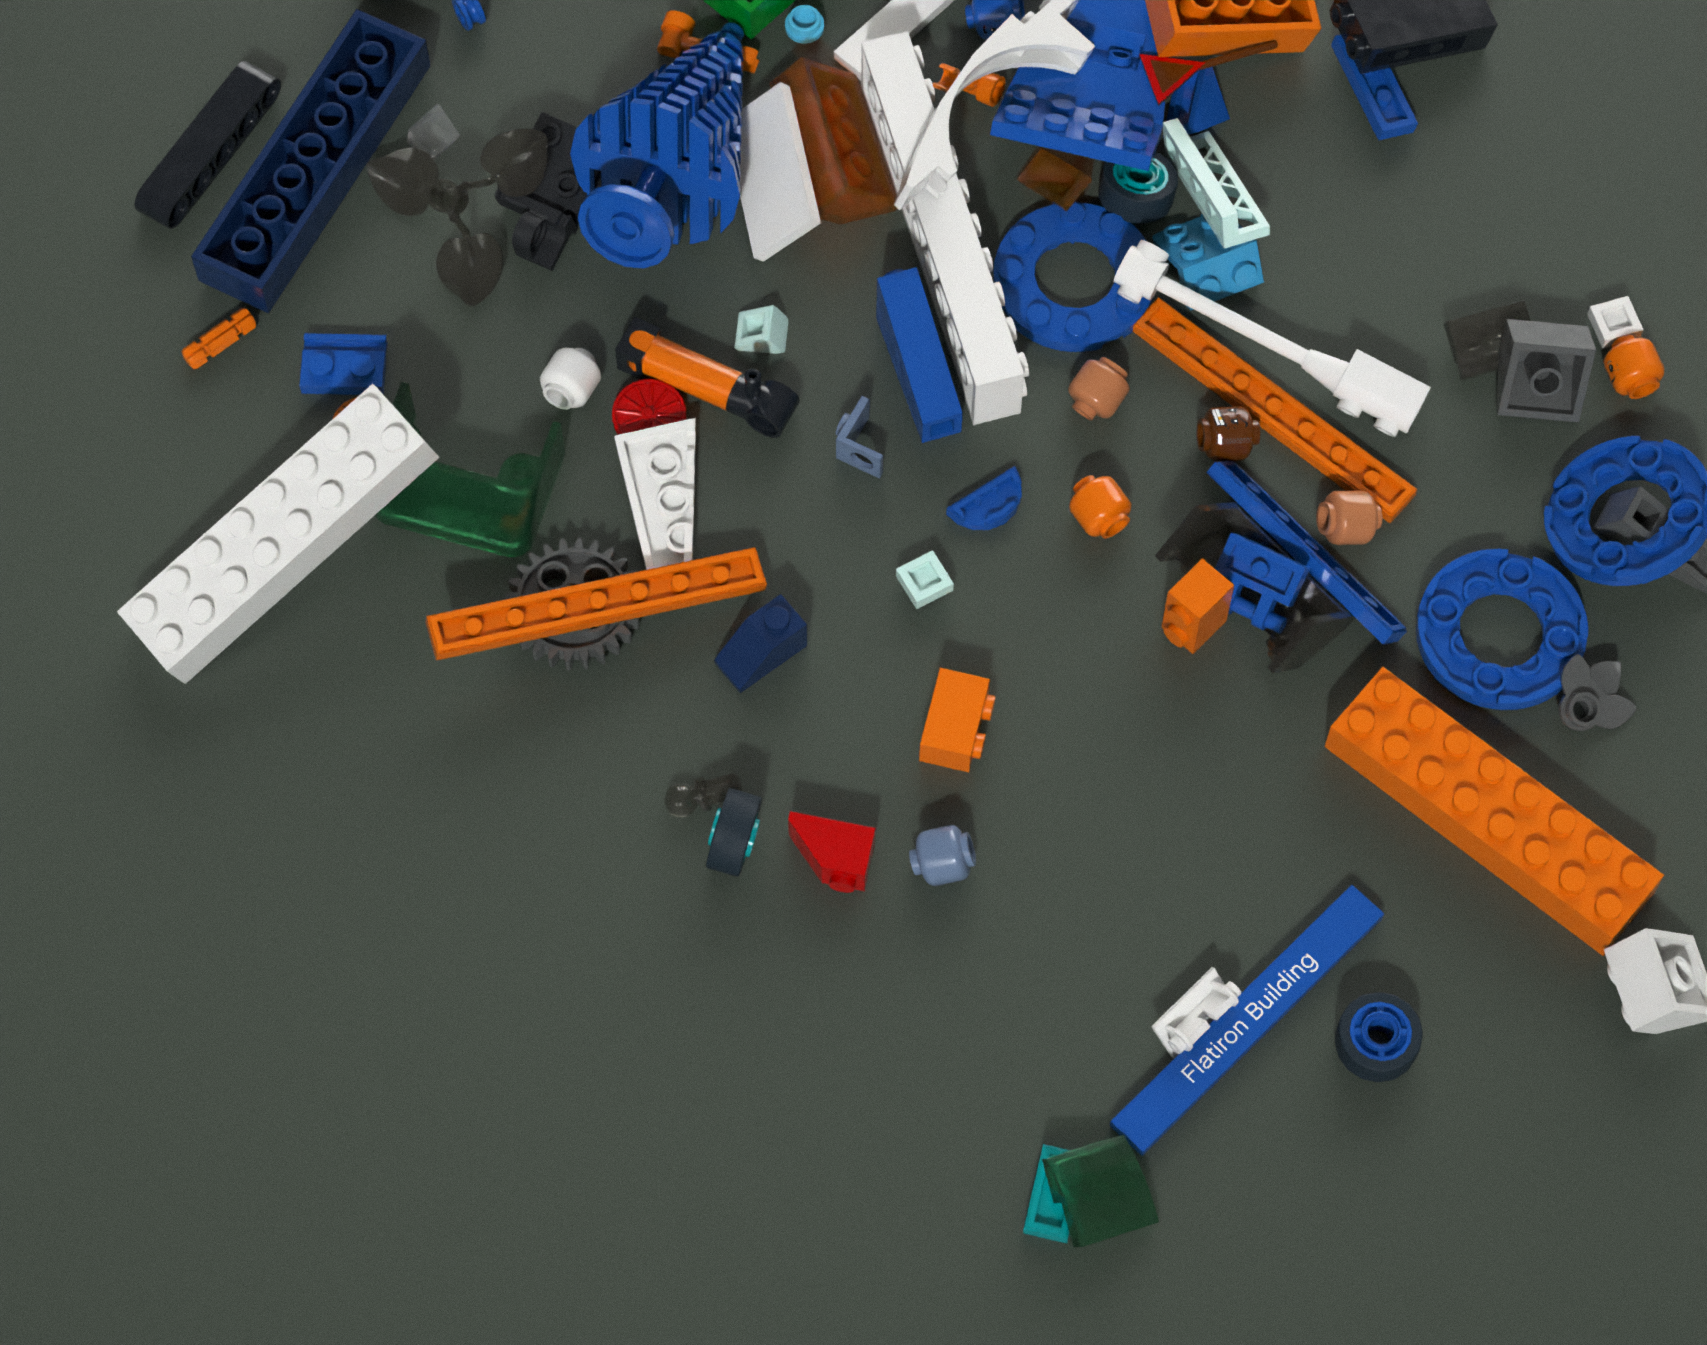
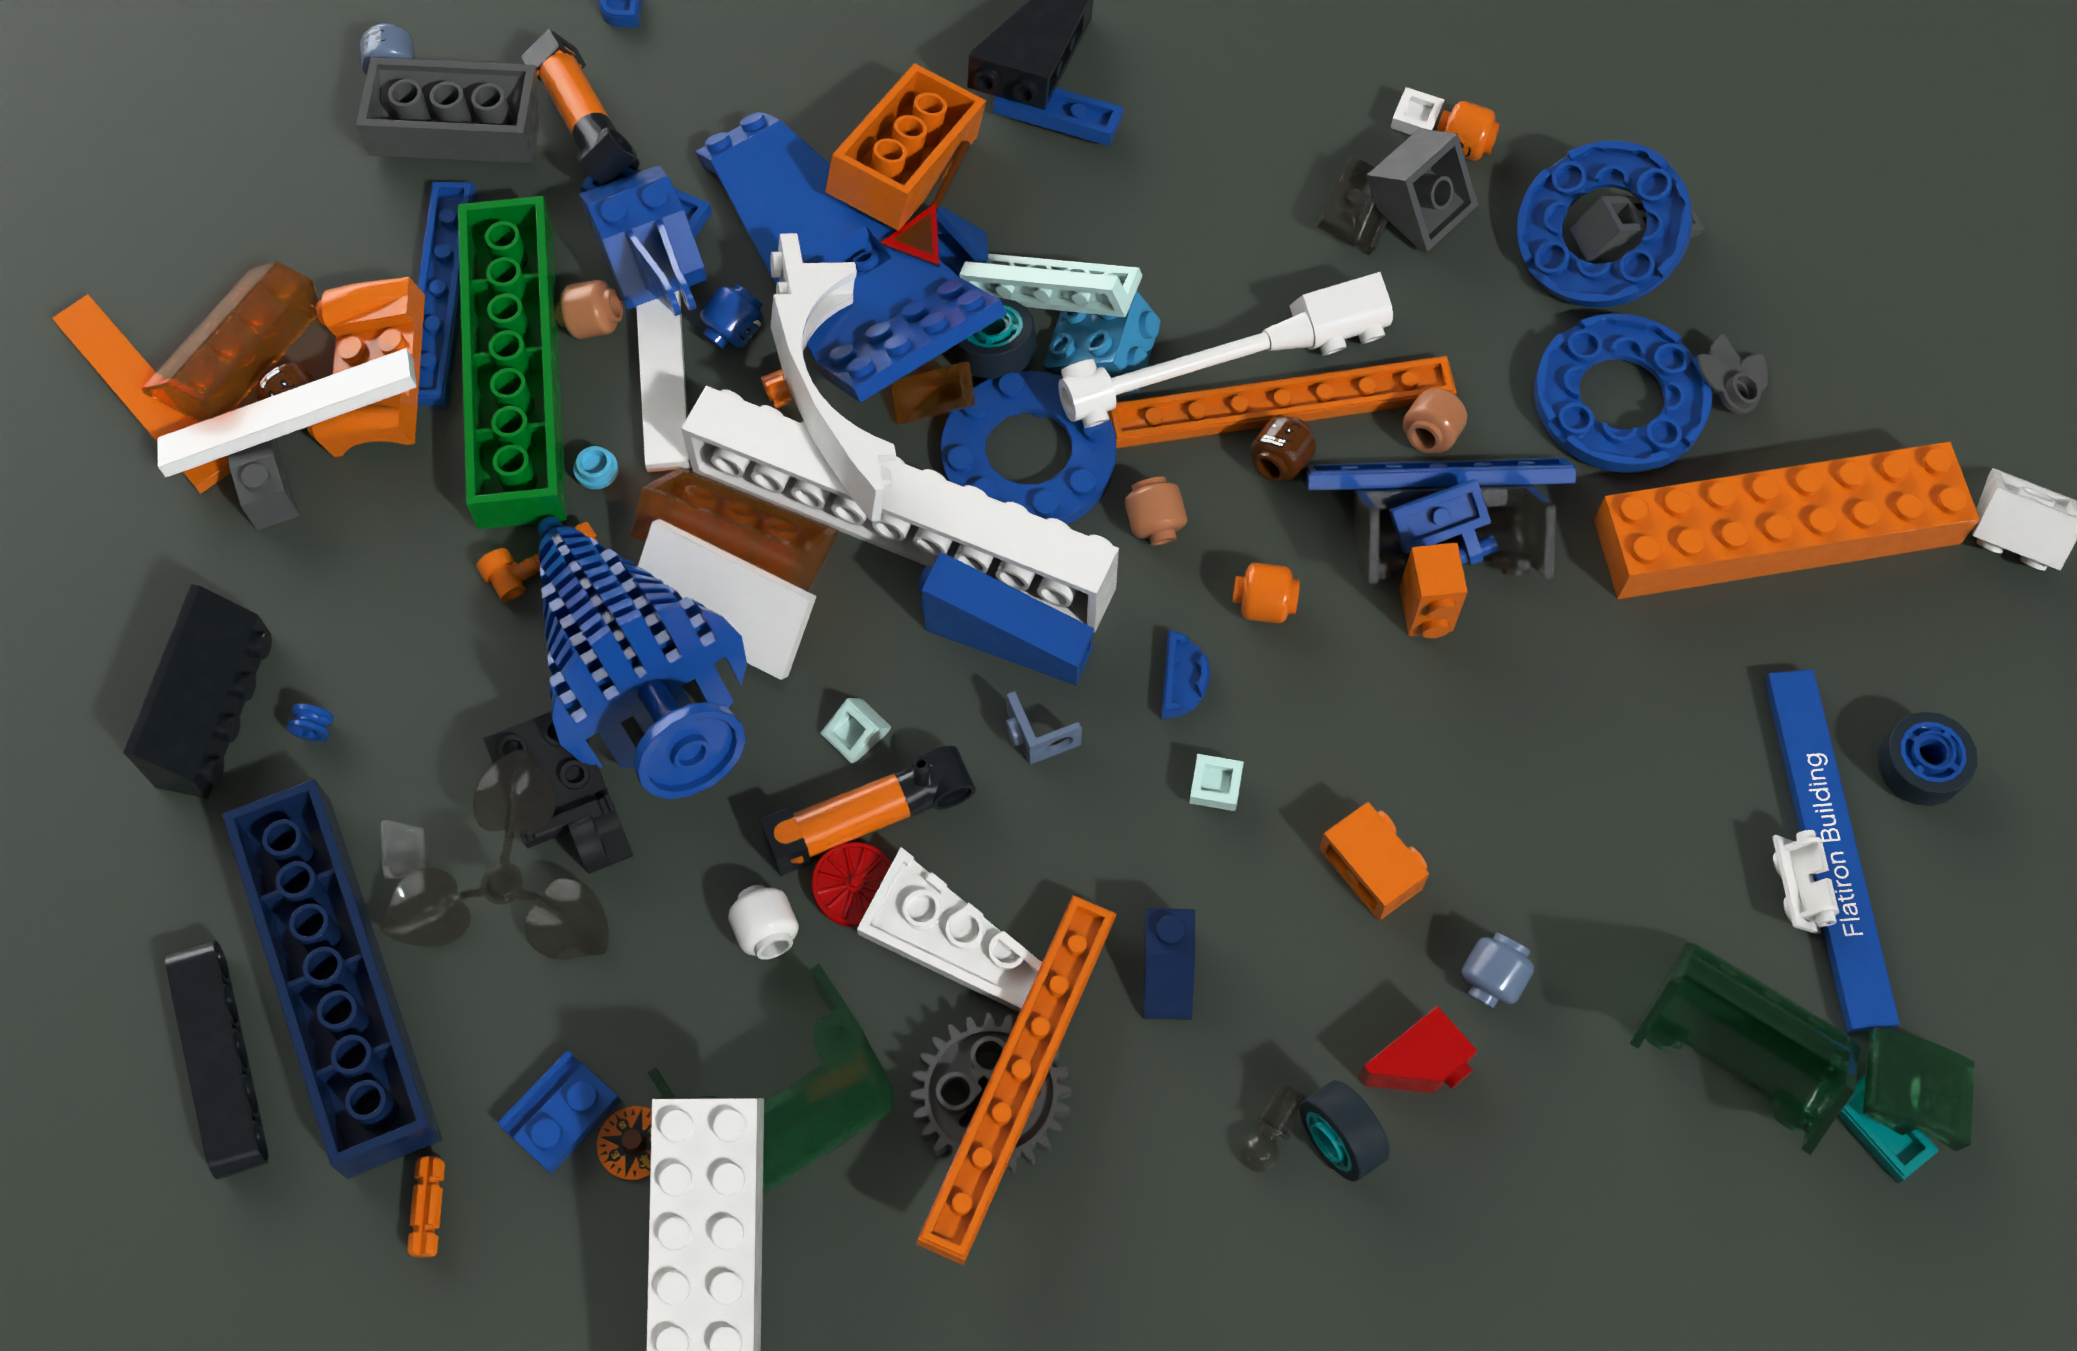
camera: 50 degrees left, 0 degrees up
(1046, 1042) = (1757, 1036): none -> clear green windscreen

